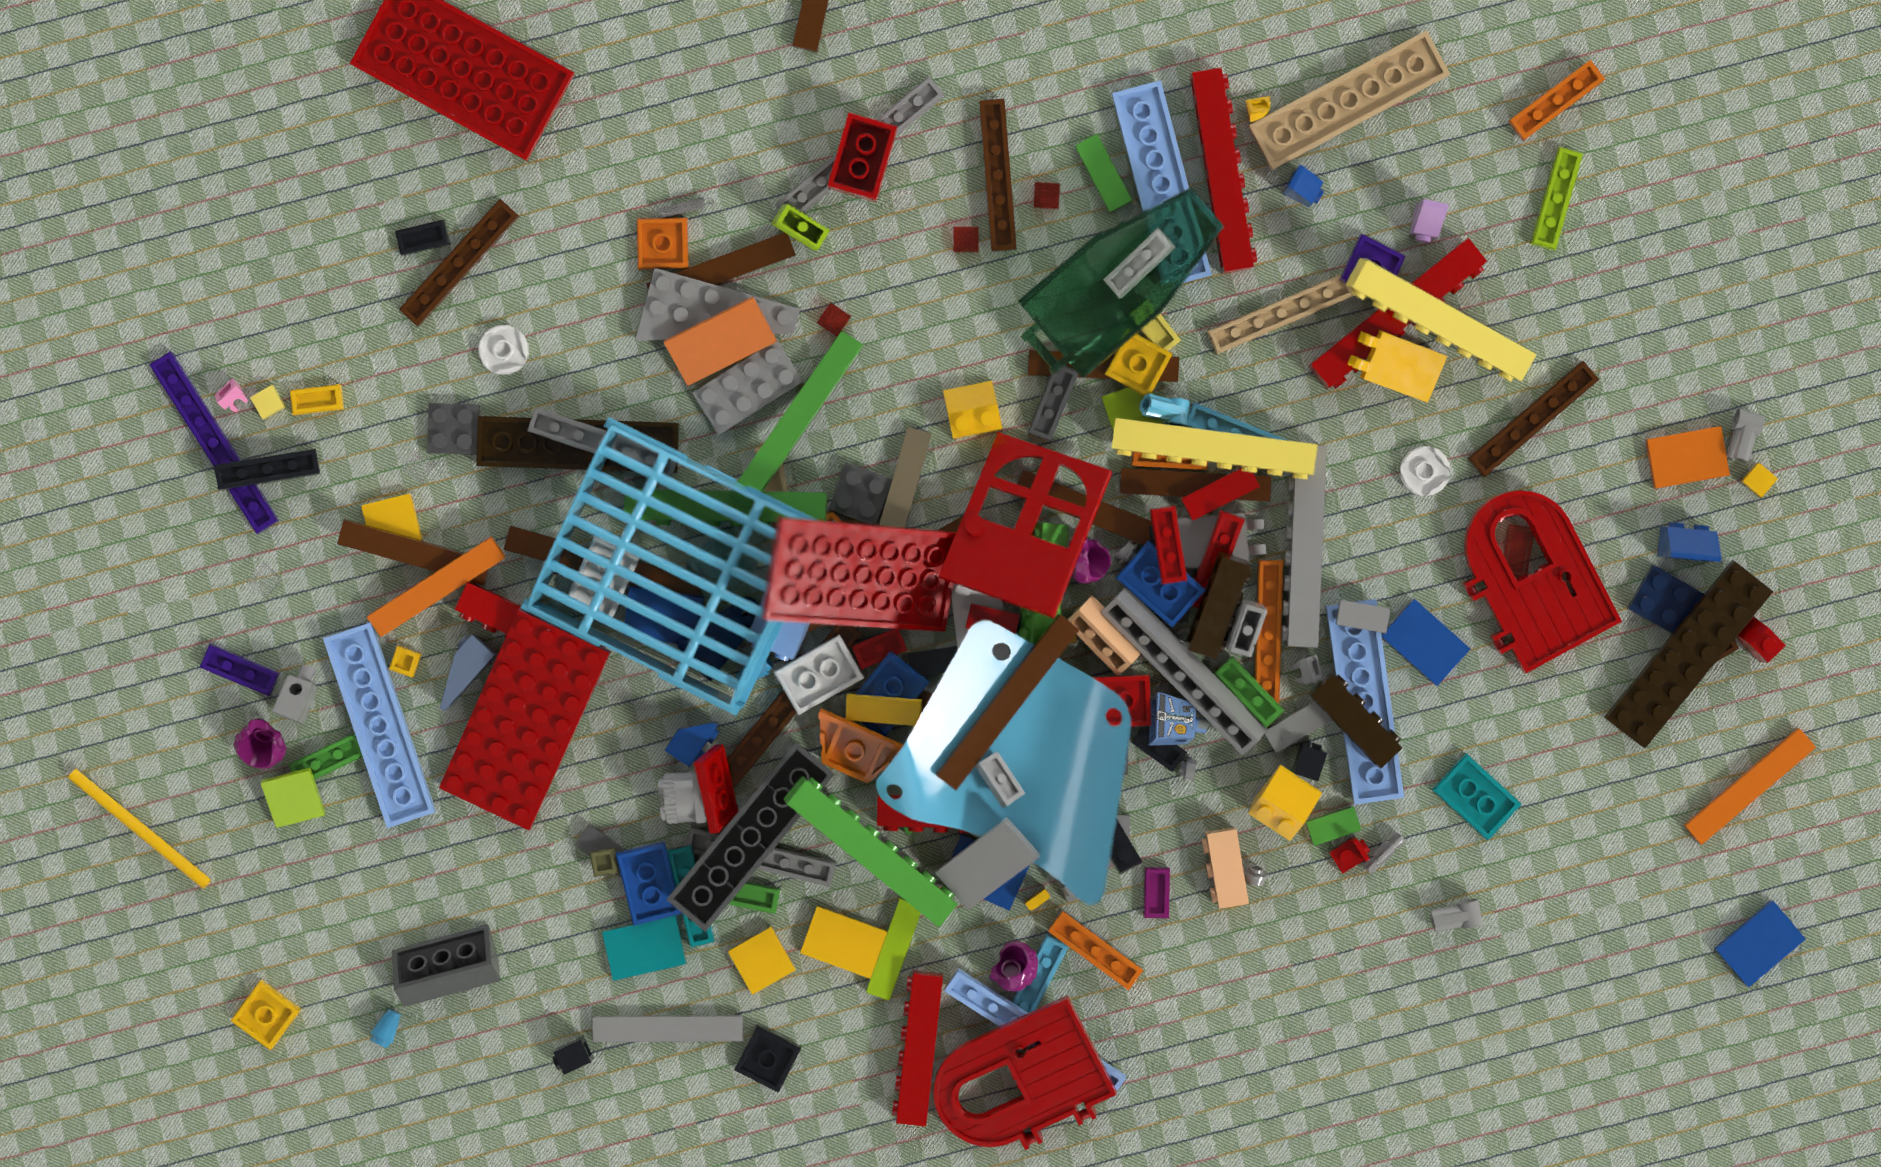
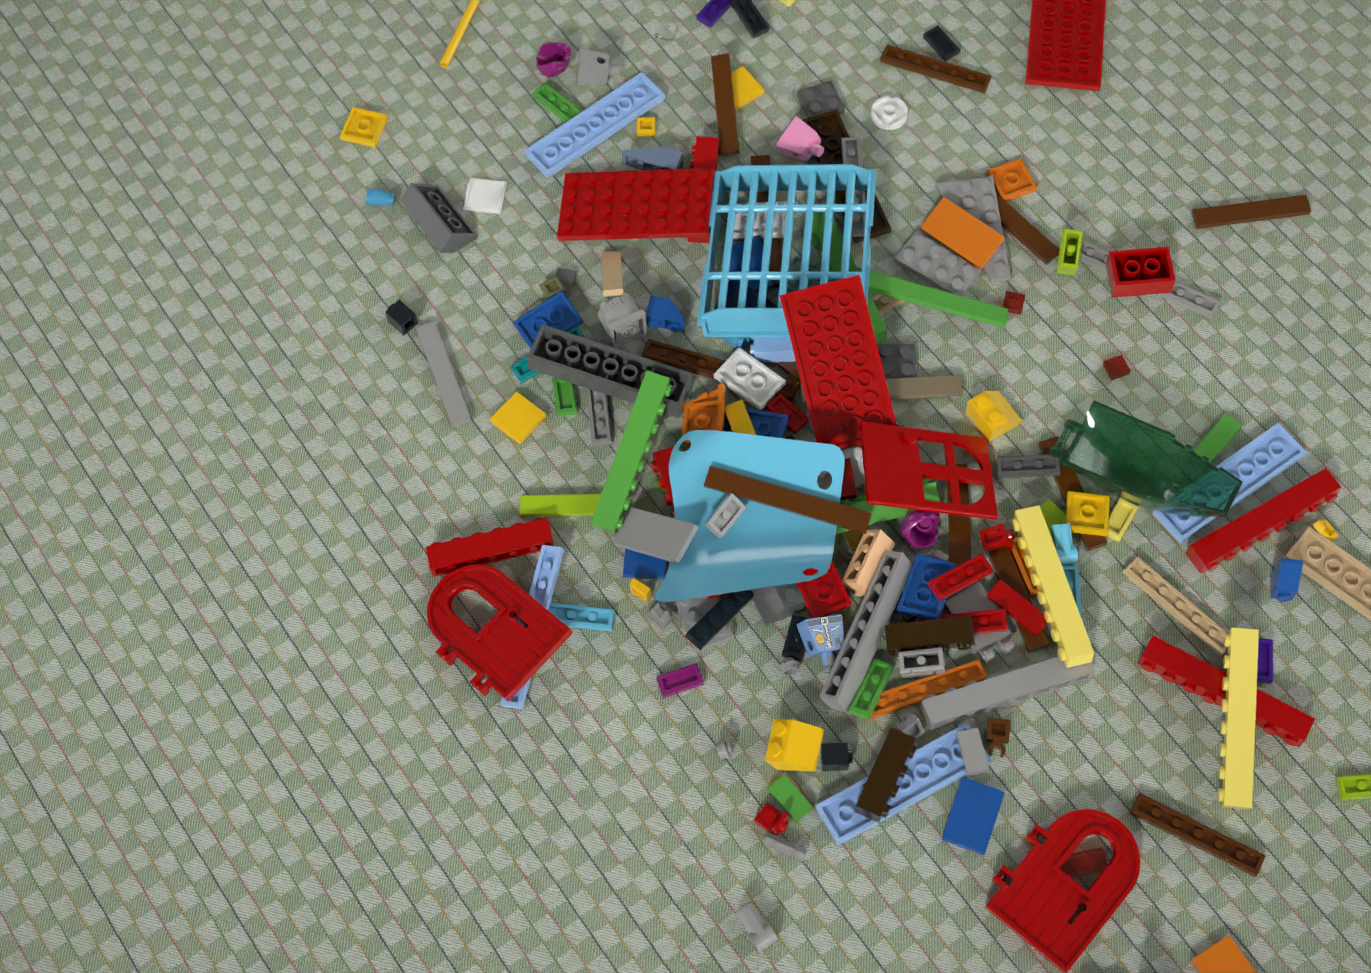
camera: 75 degrees right, 25 degrees down
(239, 670) = (599, 32): dark purple tile -> none
(293, 797) = (523, 91): lime tile -> none
(316, 399) = (802, 20): yellow tile -> none
(429, 896) = (485, 195): none -> white piece
(436, 586) = (707, 123): orange tile -> none
(512, 482) = (800, 141): none -> bright pink torso
(617, 786) = (612, 273): none -> tan tile
(644, 948) = (498, 338): teal tile -> none
(682, 207) = (1043, 183): light grey piece -> none
(716, 788) = (638, 331): red tile -> none
(767, 1058) = (443, 448): black tile -> none
(843, 942) = (553, 467): yellow tile -> none
(998, 175) = (1174, 370): reddish brown plate -> none
(1016, 966) = (580, 593): magenta hair -> none
(1046, 195) = (1177, 409): clear red tile -> none
(1095, 950) = (615, 649): orange plate -> none
(1131, 480) = (996, 537): none -> red bracket
(1139, 263) = (1164, 482): white tile -> none
(1225, 868) = (721, 723): light nougat brick -> none
(1296, 726) = (858, 737): light grey tile -> none
(1349, 576) = (998, 733): none -> reddish brown plate
(1399, 365) = (1186, 704): yellow tile -> none
(1424, 471) = (1111, 763): white tile -> none
(1428, 220) = (1312, 683): lavender slope -> none
(1476, 796) = (863, 908): teal tile -> none

